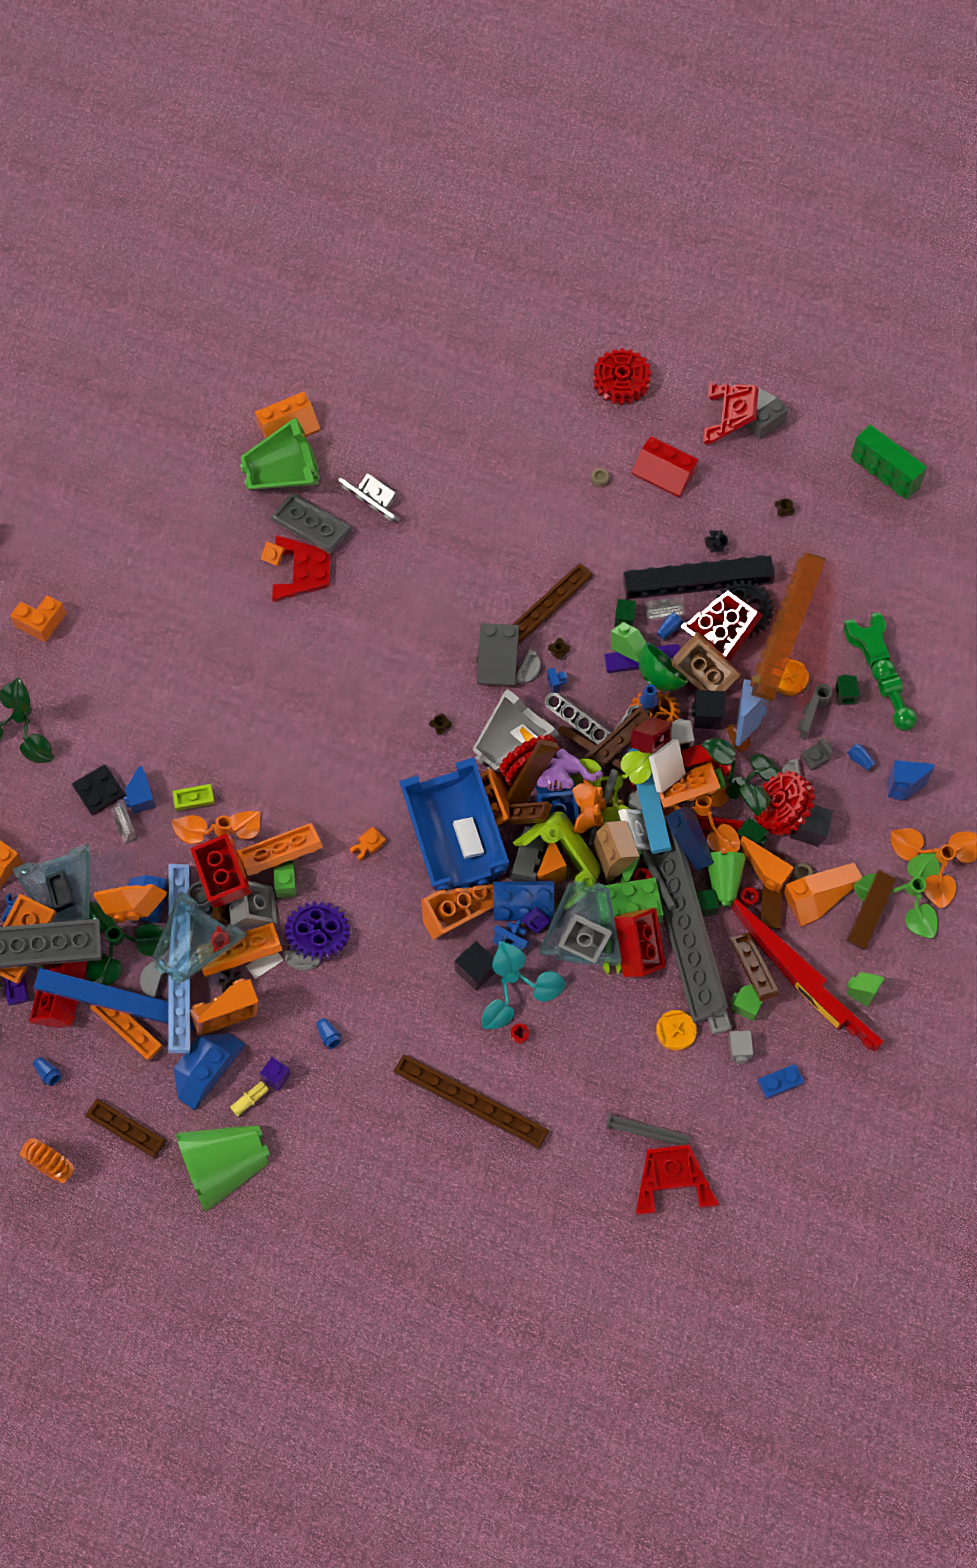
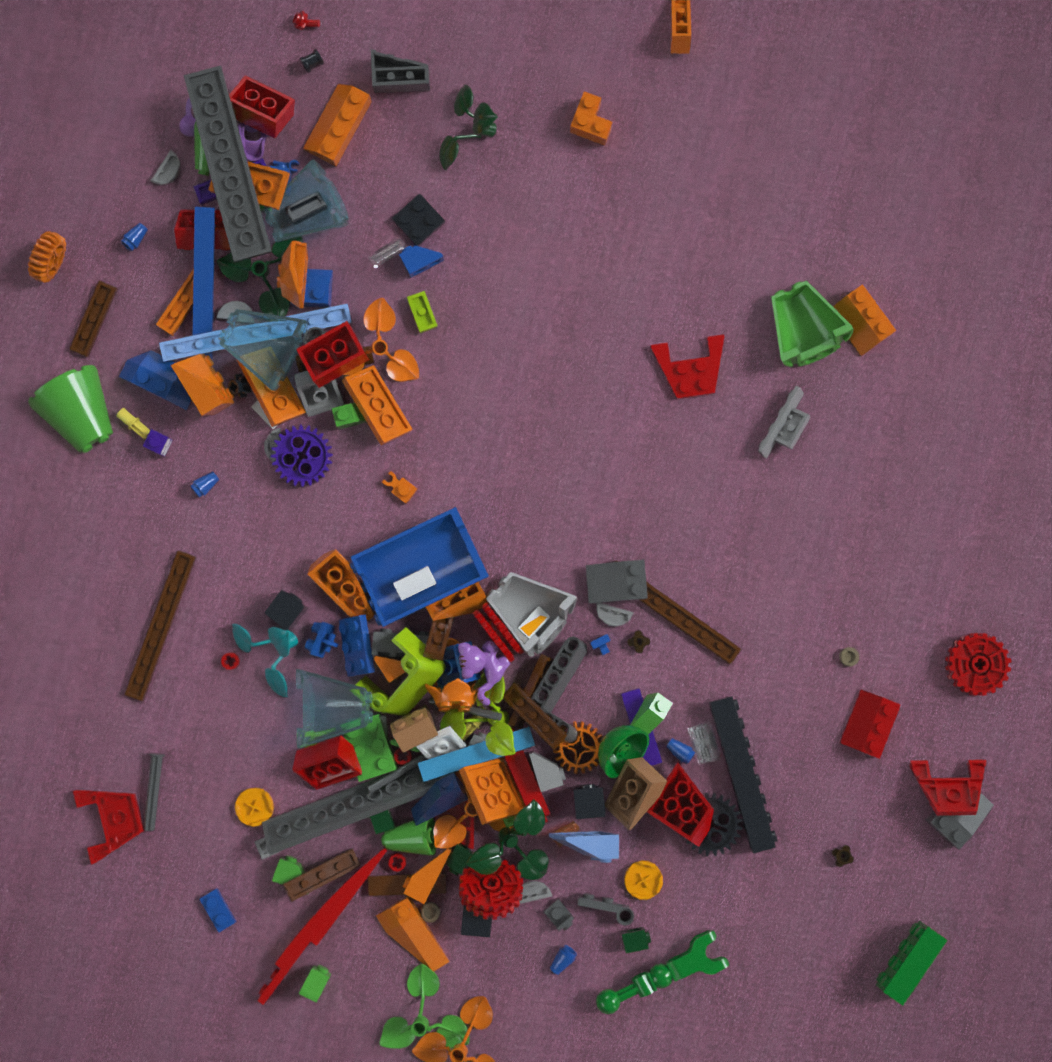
camera: 85 degrees right, 20 degrees up
(219, 939) = (270, 365): red piece -> none
(272, 553) = (702, 335): orange plate -> none
(311, 523) = (744, 367): dark grey tile -> none
(440, 718) = (537, 531): dark brown plate -> none
(532, 771) = (478, 636): reddish brown tile -> none
(536, 919) = (341, 660): dark purple tile -> none
(584, 938) = (316, 709): light grey slope -> none
(625, 612) = (686, 704): dark green brick -> none
(649, 697) = (586, 734): blue cone -> none
(651, 735) = (530, 749): dark red brick -> none
(667, 765) = (506, 768): white tile -> none
(716, 541) = (787, 788): black gear -> none
(740, 1046) = (243, 869): light grey brick -> none
(787, 628) = (689, 874): clear orange brick -> none
(871, 910) = (399, 983): reddish brown tile -> none
(907, 778) = (537, 1008): blue slope -> none

